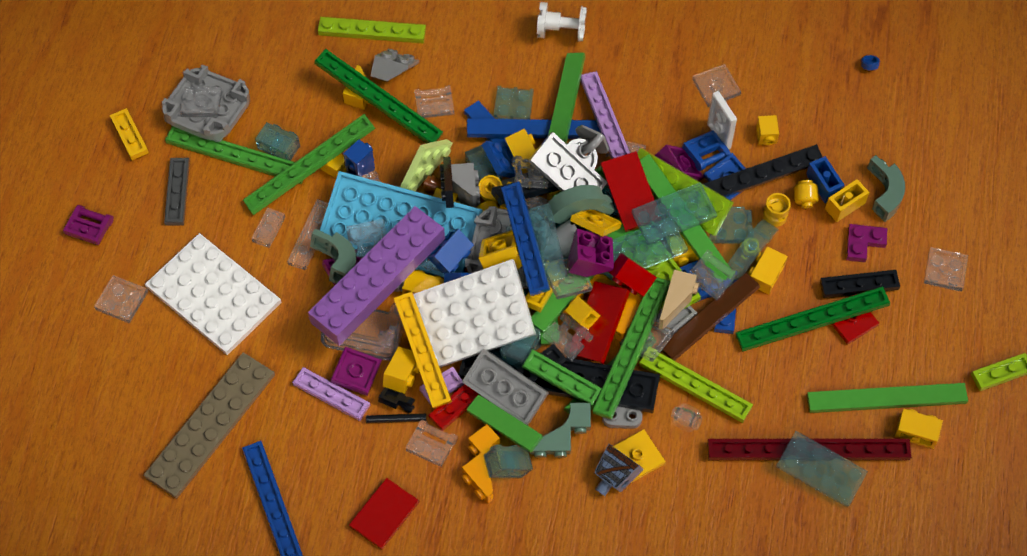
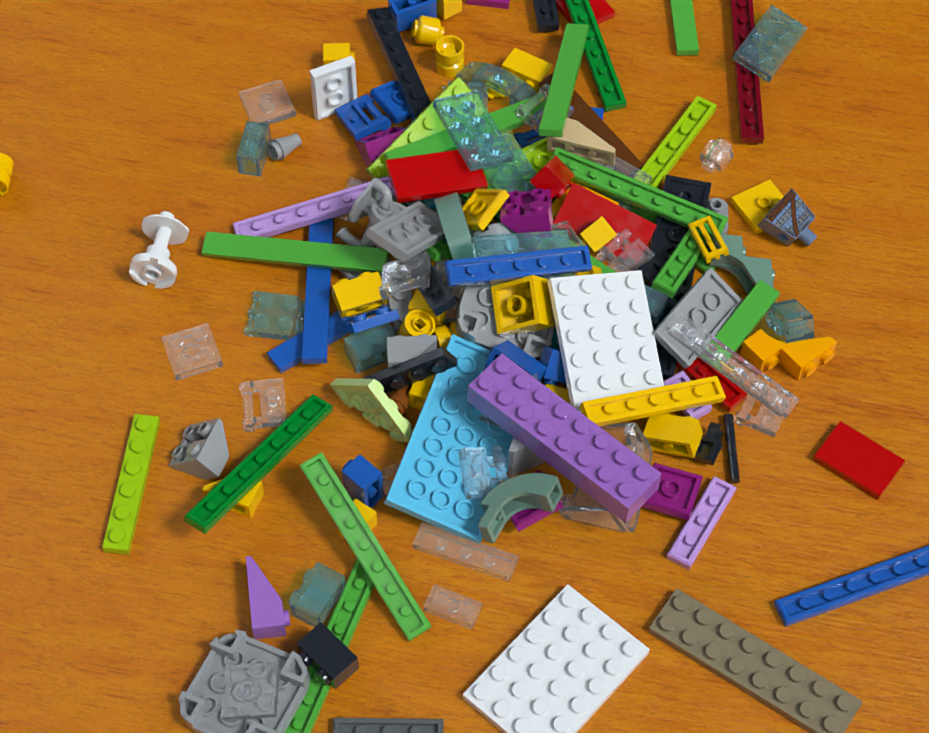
camera: 90 degrees left, 5 degrees down
(227, 147) = (327, 656): none -> black brick
(275, 110) = (266, 606): none -> medium lavender slope
(456, 407) = (731, 365): none -> clear plate
(481, 55) = (192, 351): none -> clear plate
(582, 398) = (715, 253): none -> yellow tile
(667, 77) = (253, 148): none -> clear light blue brick
(673, 98) = (283, 146): none -> light grey cone
(742, 285) = (563, 80): none -> bright green tile

